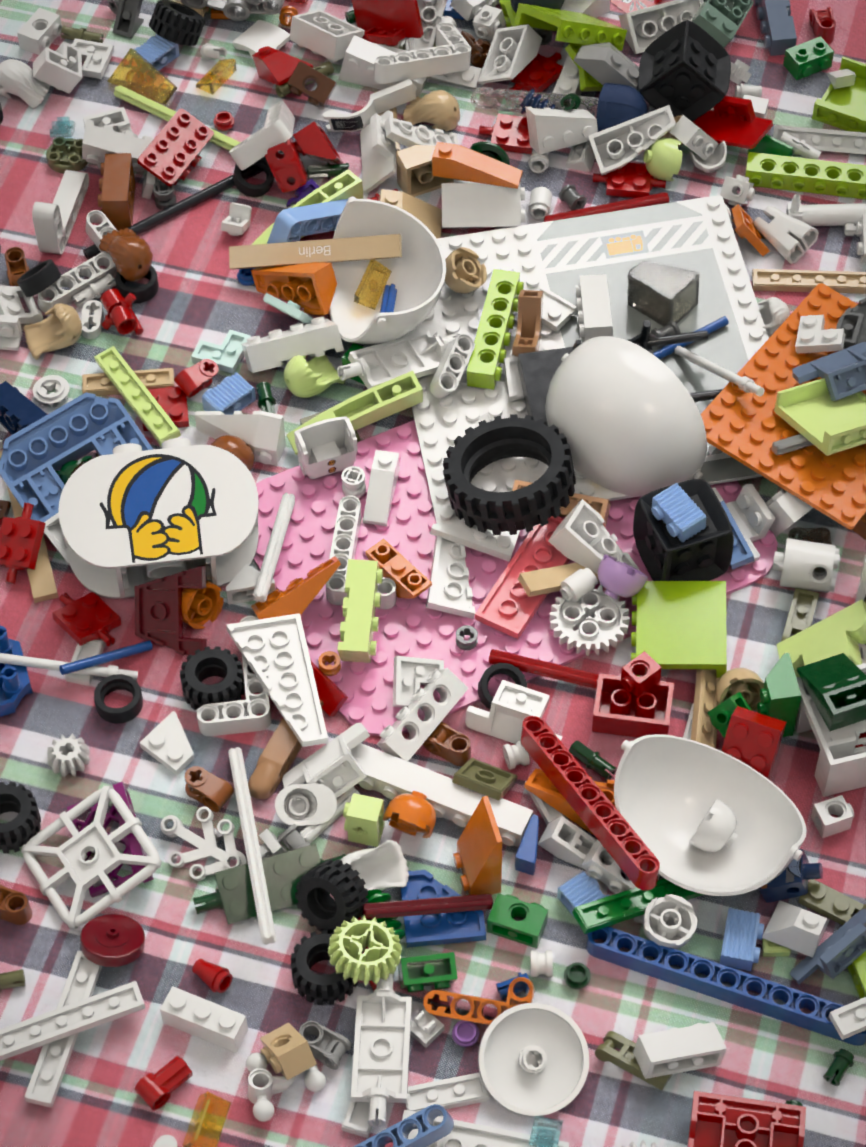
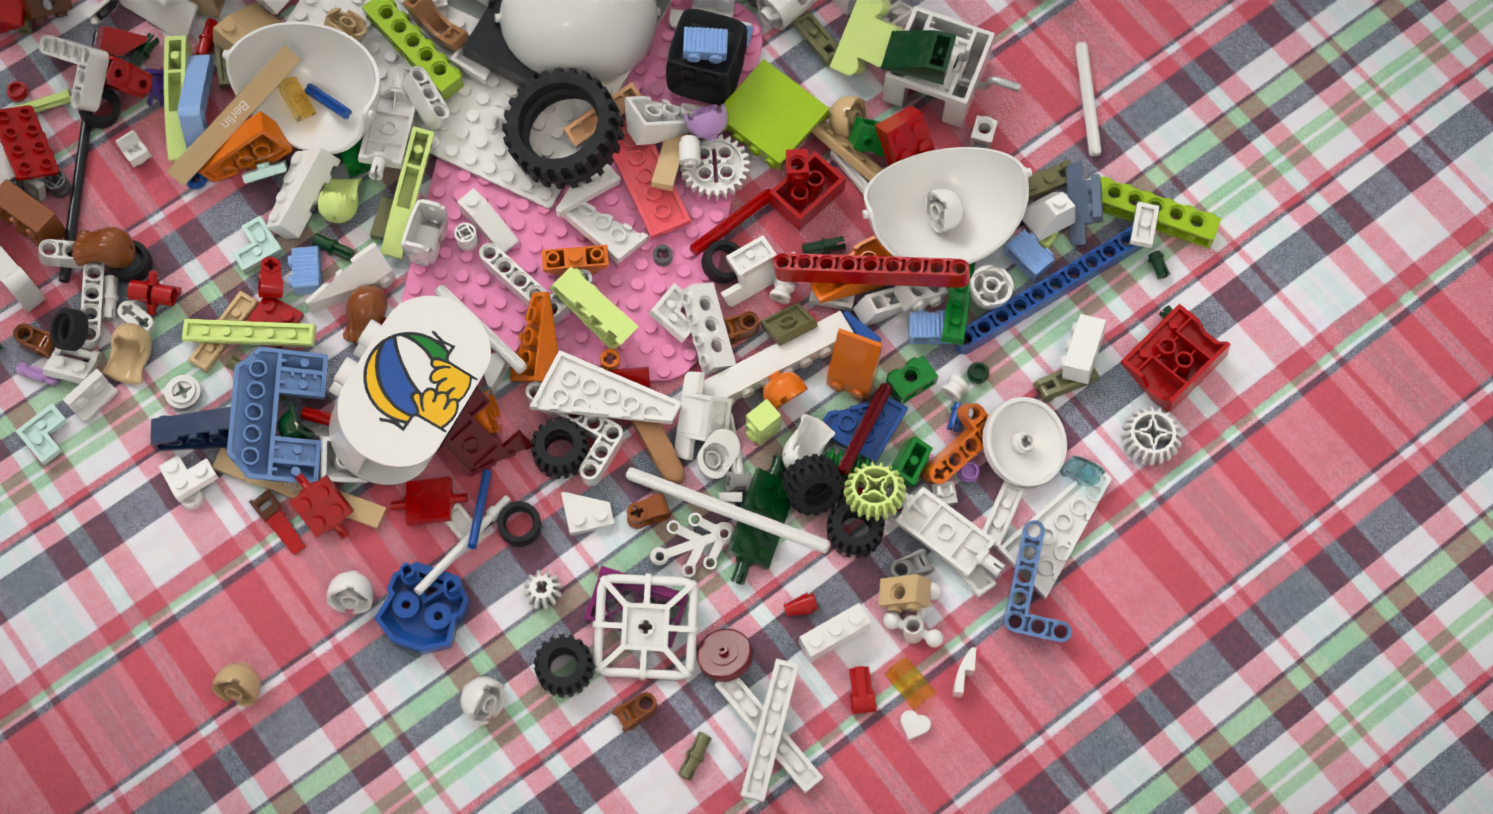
camera: 55 degrees left, 15 degrees up
(781, 694) = (881, 93): green slope -> none

